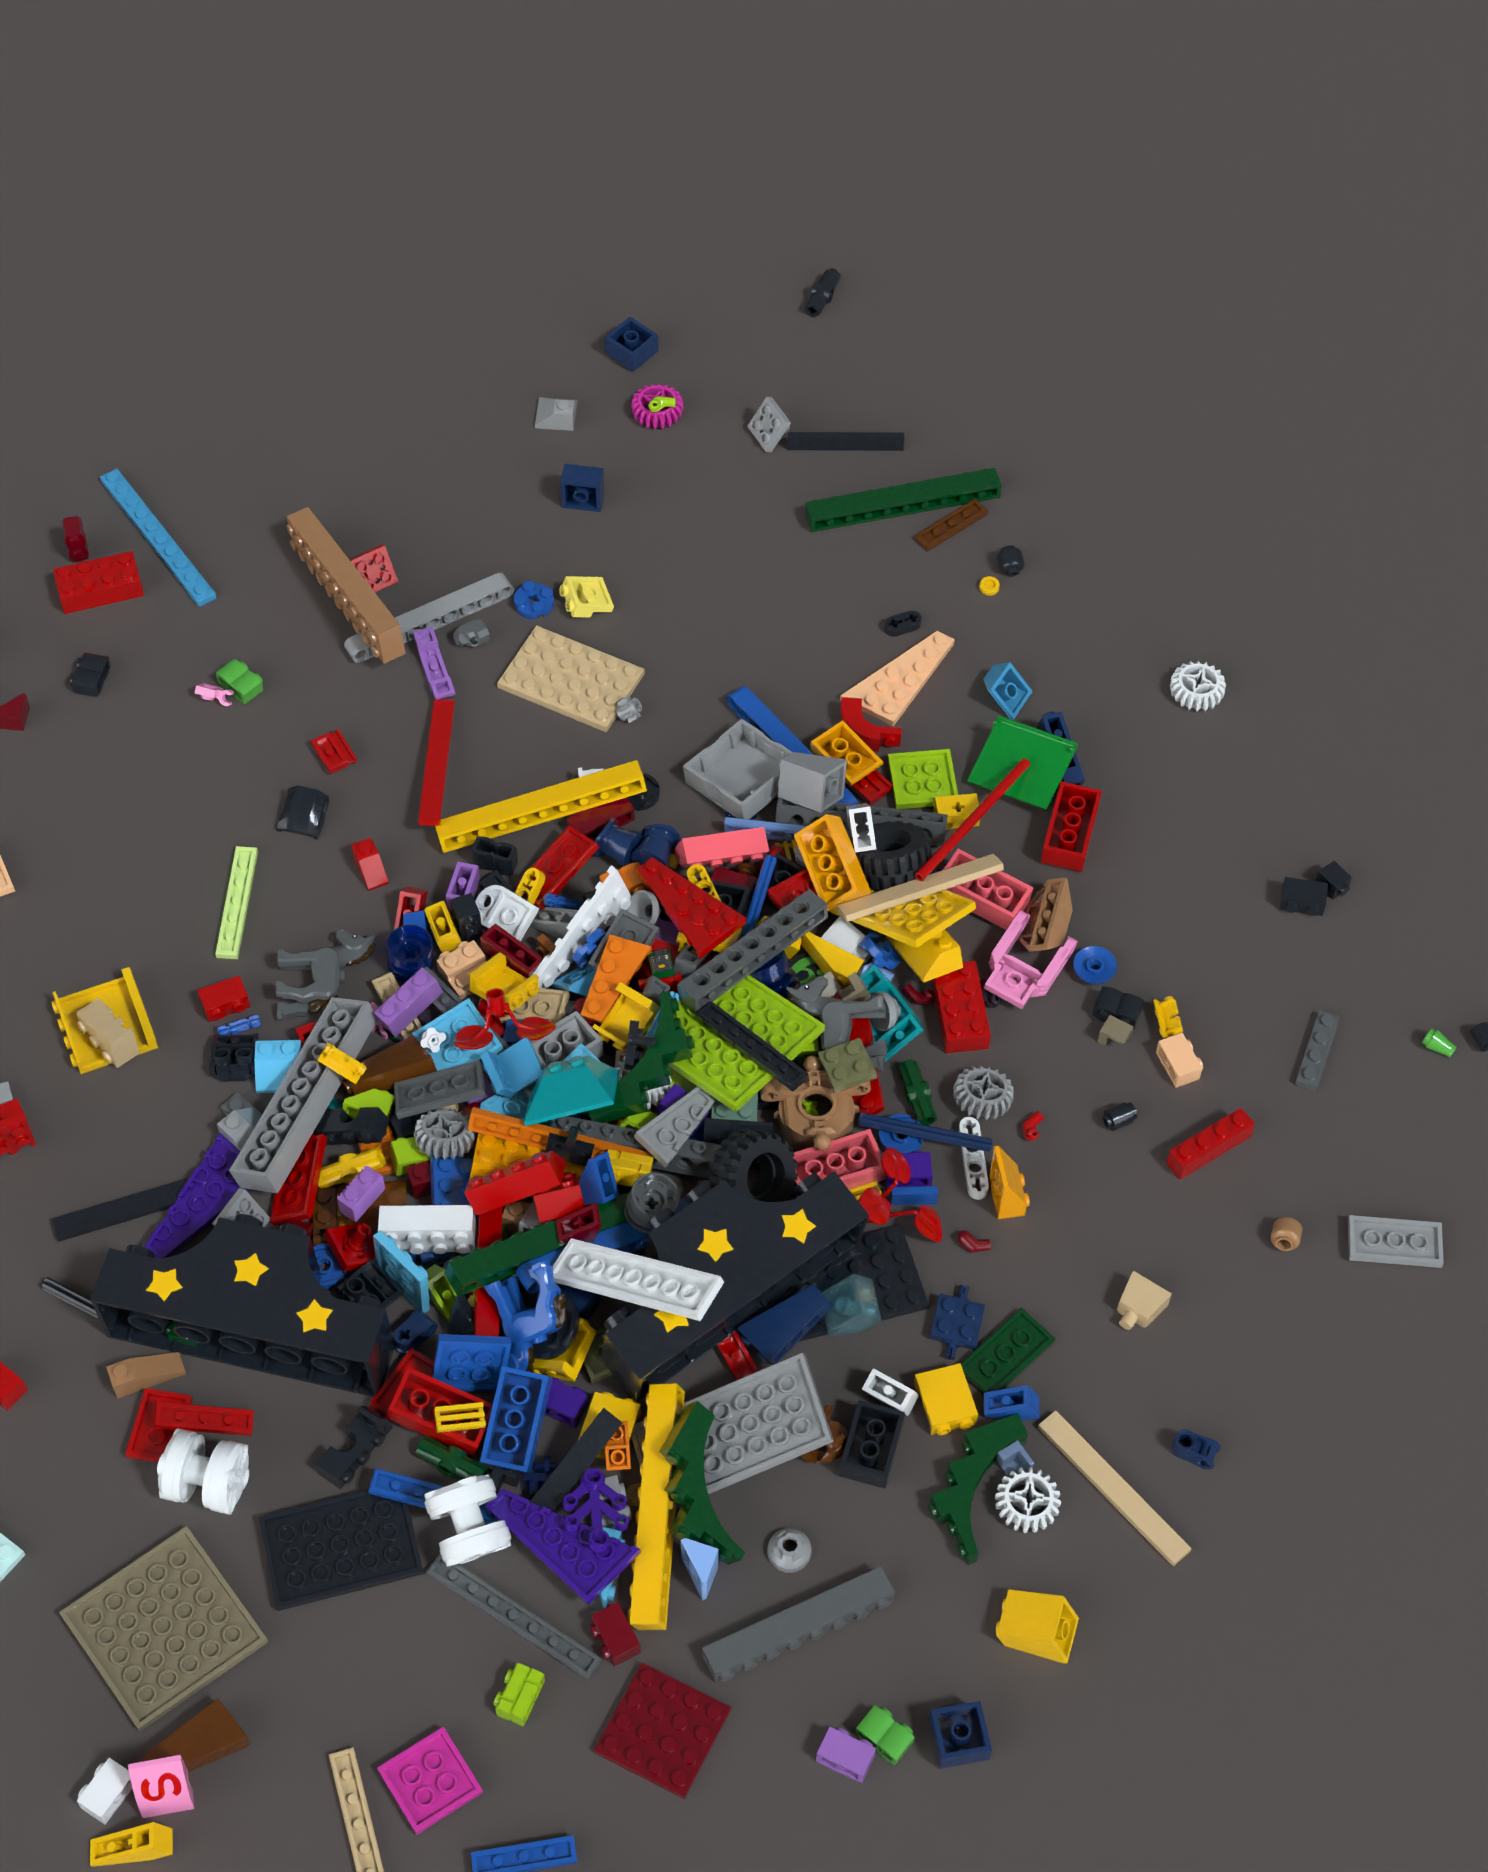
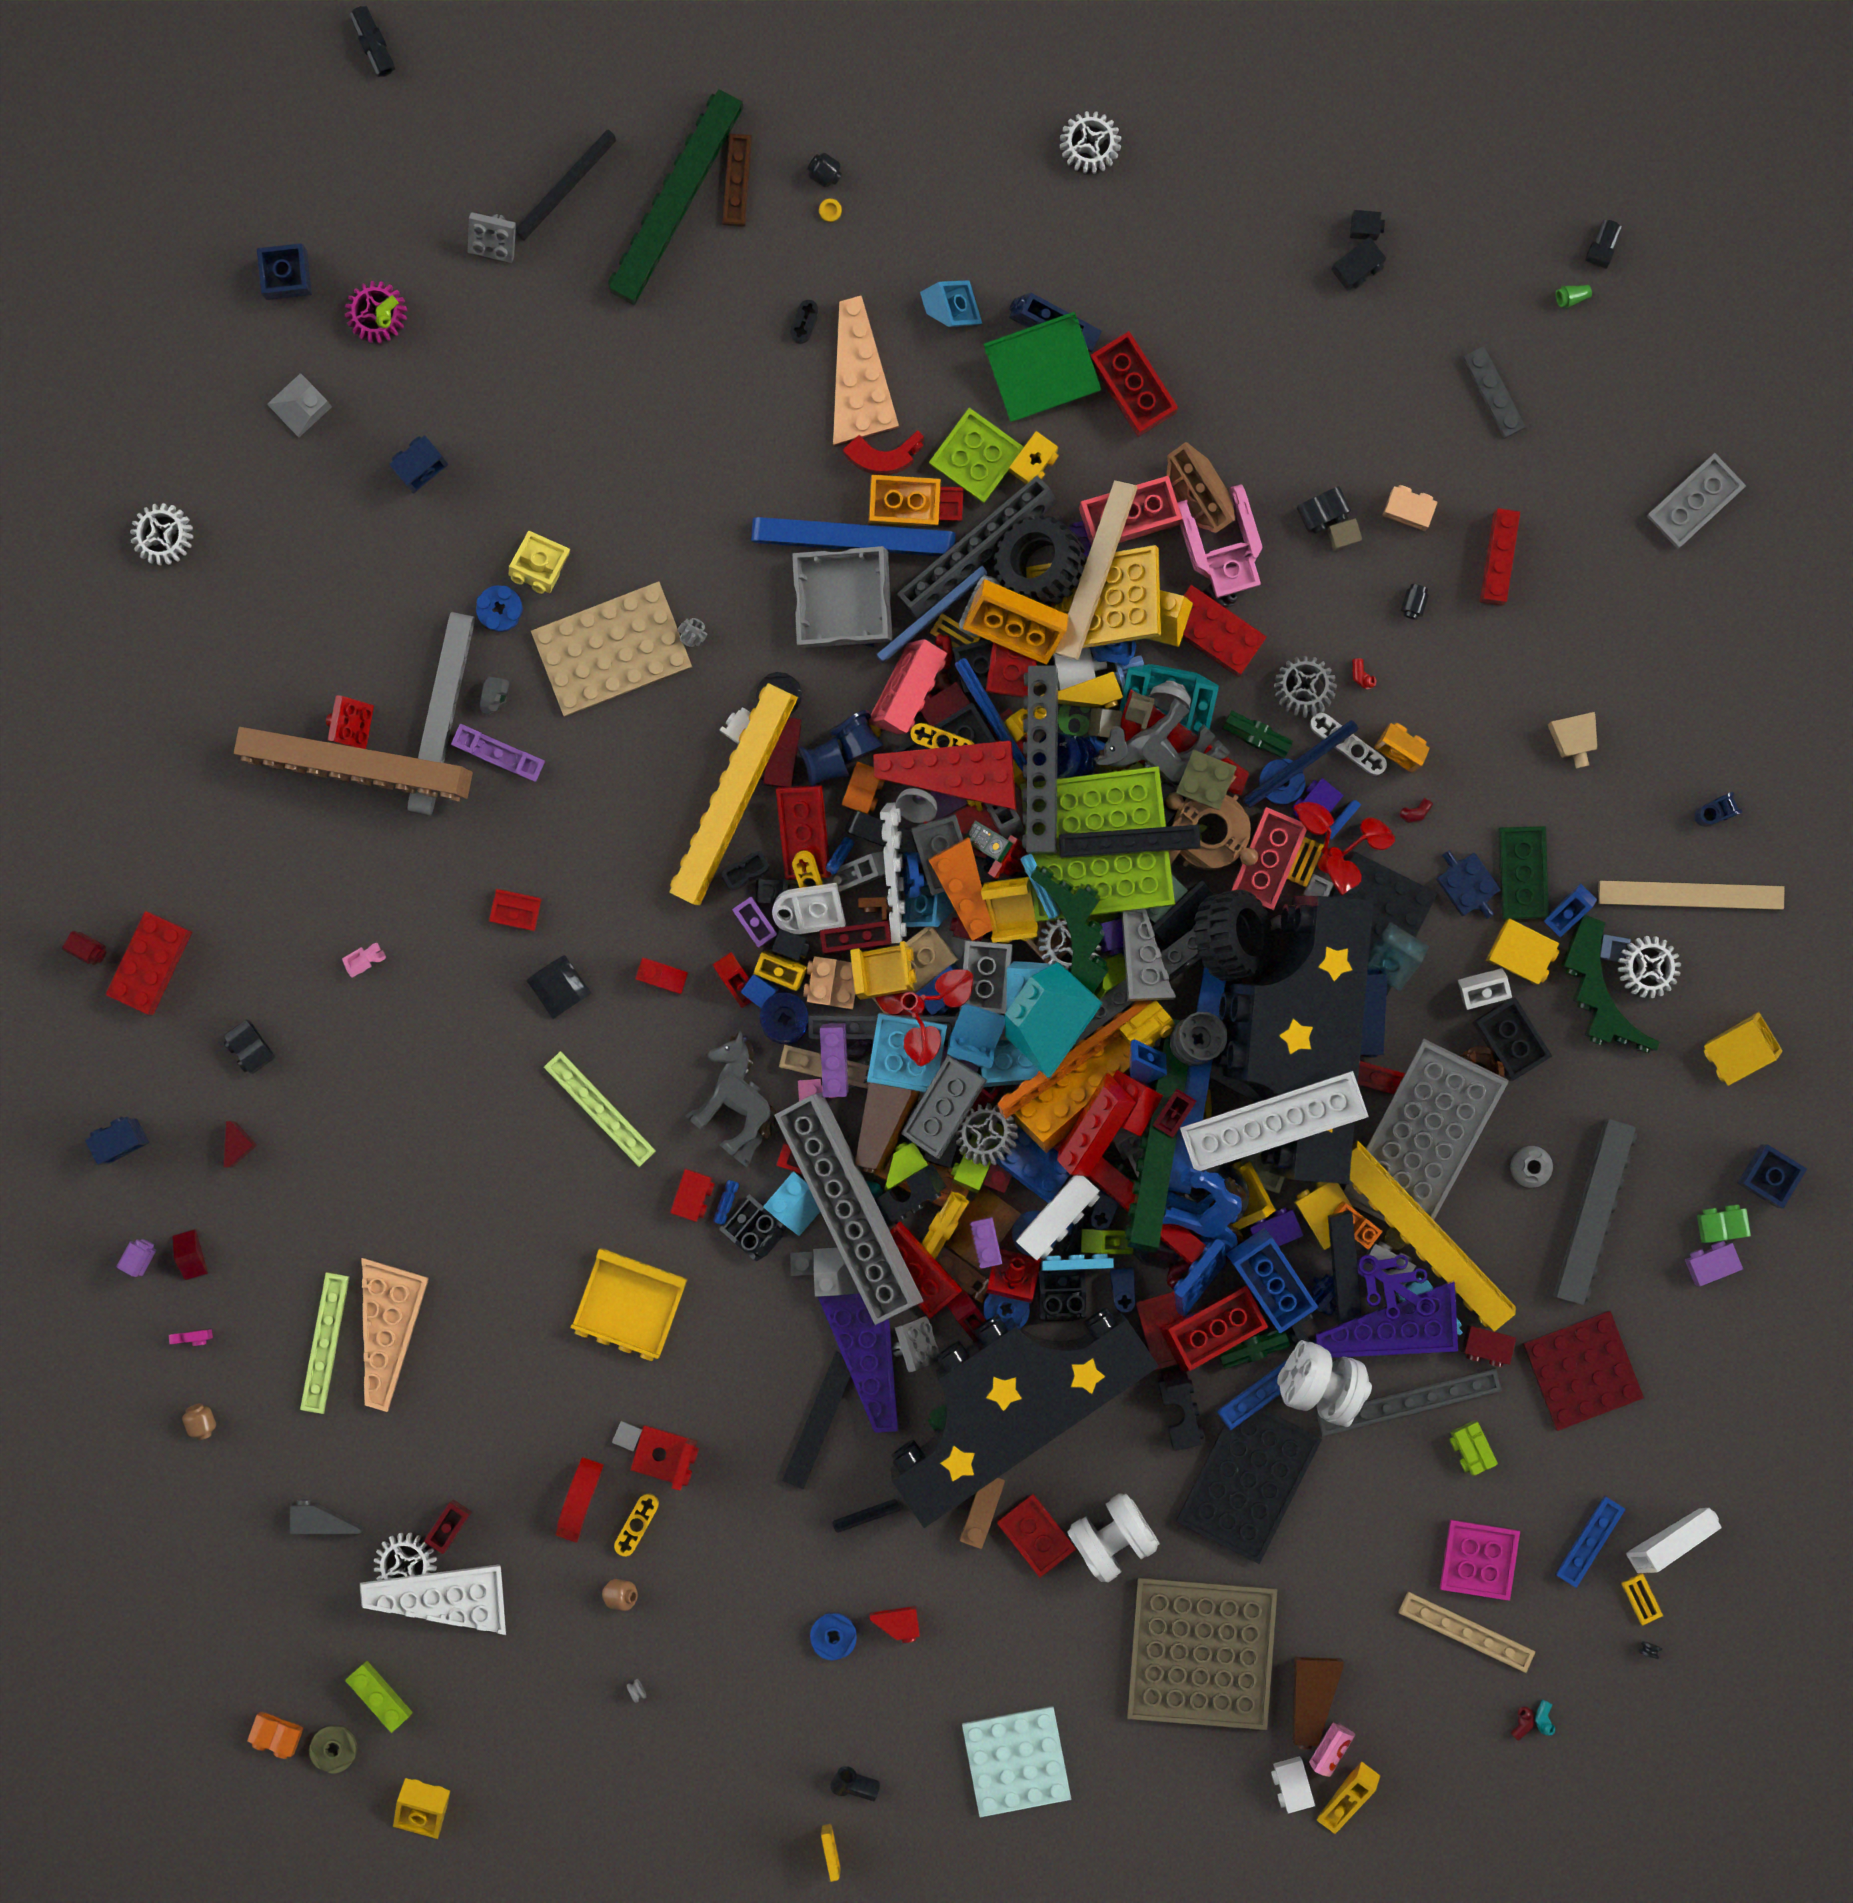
camera: 45 degrees left, 30 degrees up
(107, 1033) = (648, 1314): tan wedge -> none
(158, 537) = (134, 869): dark azure plate -> none
(204, 1419) = (1063, 1501): red plate -> none
(240, 680) = (369, 928): bright green brick -> none
(341, 1063) = (857, 1164): yellow hinge -> none
(397, 400) = (154, 537): none -> white gear
(428, 1035) = (893, 1074): white plate -> none
(436, 762) = (607, 837): red tile -> none
(459, 1408) = (1248, 1305): yellow tile -> none
(570, 1148) = (1091, 1057): black plate -> none
(635, 1038) = (1051, 937): black plate -> none
(654, 988) = (1014, 870): dark grey tile -> none
(688, 1486) = (1438, 1207): dark green arch -> none
(700, 1563) = (1497, 1243): light blue slope -> none
(812, 780) = (915, 561): light grey slope -> none
(861, 827) = (1000, 566): white slope -> none
(917, 997) = (1173, 652): dark red arm -> none
(972, 819) = (1068, 465): red piece -> none
(1096, 958) = (1271, 478): blue dish -> none
(1164, 1012) = (1360, 477): yellow hinge -> none
(1286, 1233) = (1619, 575): medium nougat head -> none

